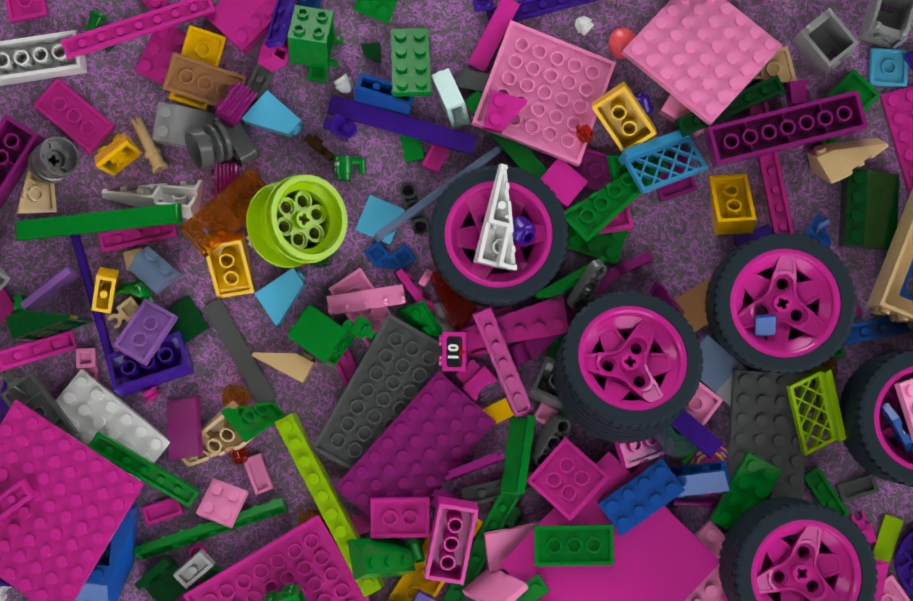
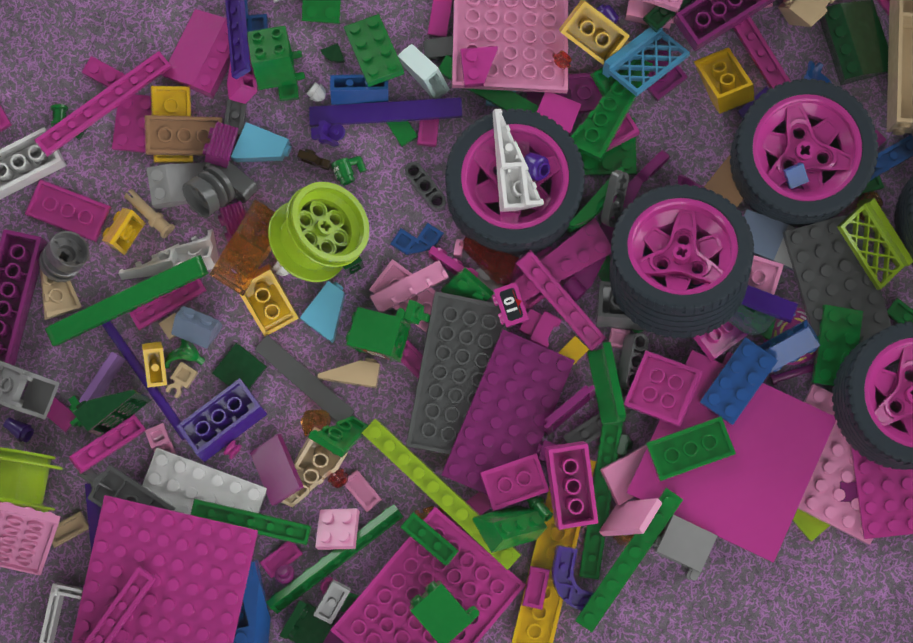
camera: 10 degrees left, 5 degrees down
(145, 332) = (207, 389): medium lavender tile -> none
(159, 527) = (284, 574): none -> magenta plate
(302, 543) = (429, 539): none -> green tile
(376, 215) = (395, 208): medium azure tile -> none
(432, 197) = (437, 170): sand blue tile -> none

